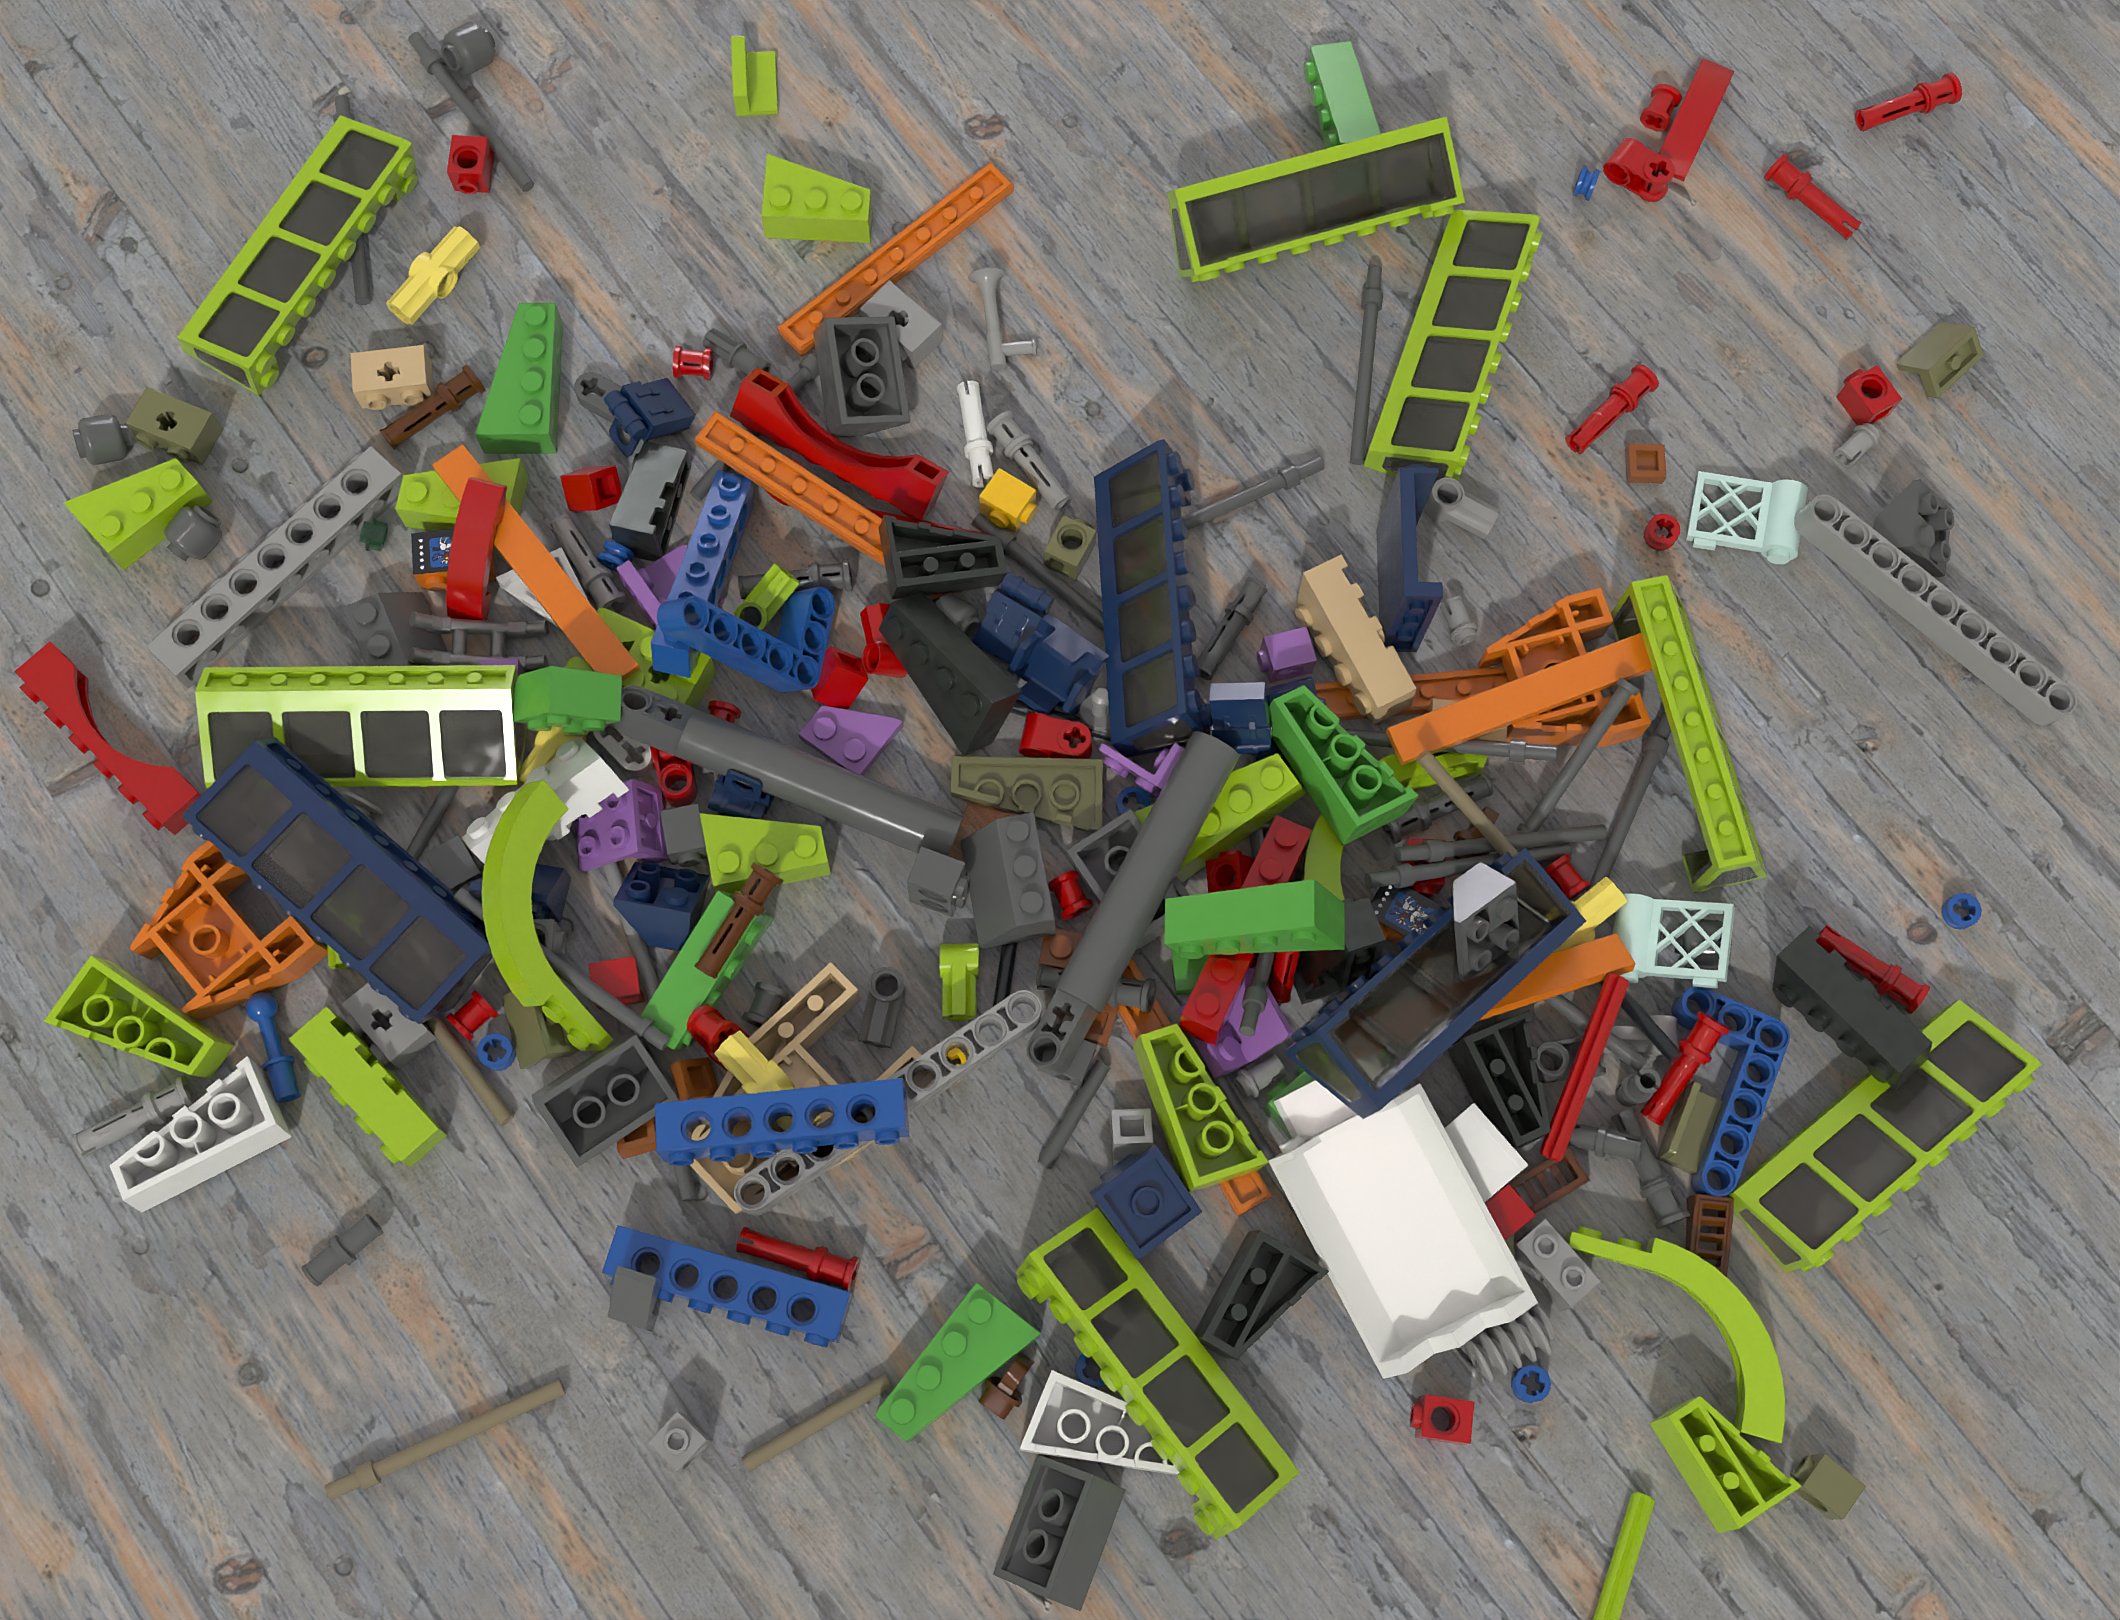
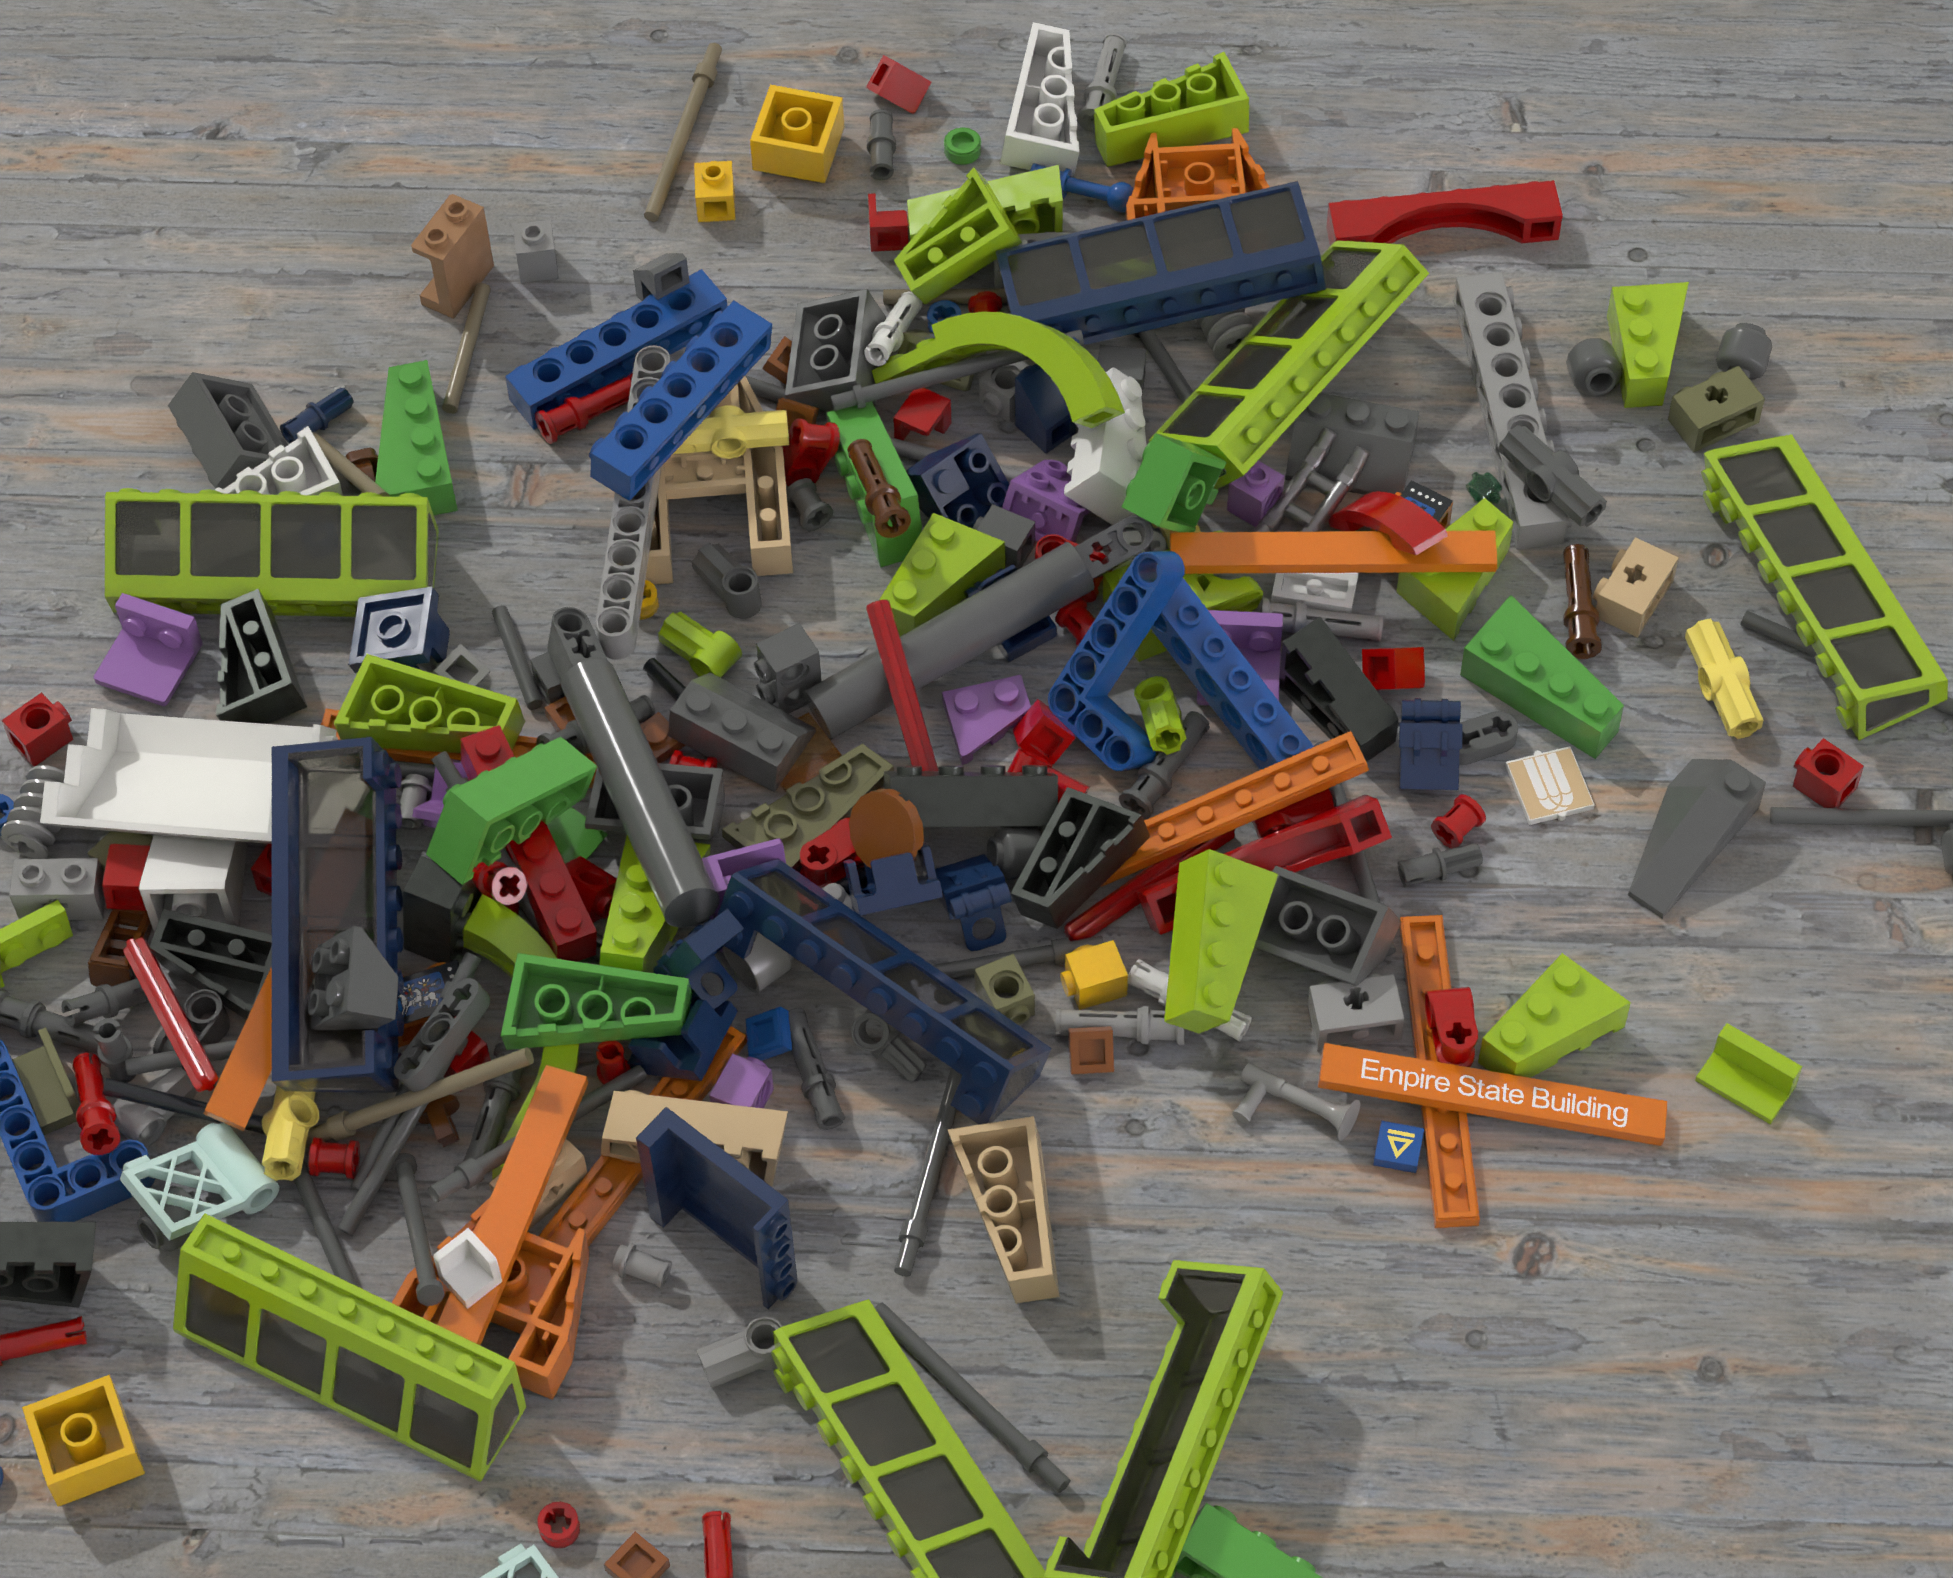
camera: 135 degrees right, 15 degrees down
(262, 1289) = (898, 84): none -> red panel
(291, 1186) = (962, 146): none -> bright green tile
(341, 470) = (1552, 475): none -> dark grey piece
(387, 1320) = (797, 133): none -> yellow brick
(427, 1063) = (957, 240): none -> lime wedge
(430, 1173) = (887, 228): none -> red panel
(498, 1347) = (714, 191): none -> yellow brick
(560, 1060) = (888, 341): none -> white pin
(571, 219) = (1692, 827): none -> dark grey wedge
(610, 335) = (1549, 785): none -> piece
(749, 1493) = (459, 254): none -> medium nougat panel
(867, 252) = (1452, 1025): none -> red piece
(896, 775) = (901, 685): none -> red axle
(898, 207) = (1493, 1094): none -> orange tile
(934, 418) = (1213, 937): none -> lime wedge
(976, 242) = (1398, 1146): none -> blue tile
(984, 1480) = (318, 414): none -> dark blue axle
(1025, 1388) = (348, 469): none -> dark tan bar
(1029, 687) = (885, 826): none -> dark orange tile
(1066, 463) = (1091, 1050): none -> dark orange plate
(1224, 419) = (1010, 1192): none -> tan wedge
(1231, 668) = (768, 1034): none -> blue tile
(1312, 1397) = (149, 651): none -> medium lavender bracket
(1472, 855) = (457, 1011): none -> dark grey beam
(1592, 674) = (467, 1268): none -> white panel
(1893, 851) = (83, 1440): none -> yellow brick

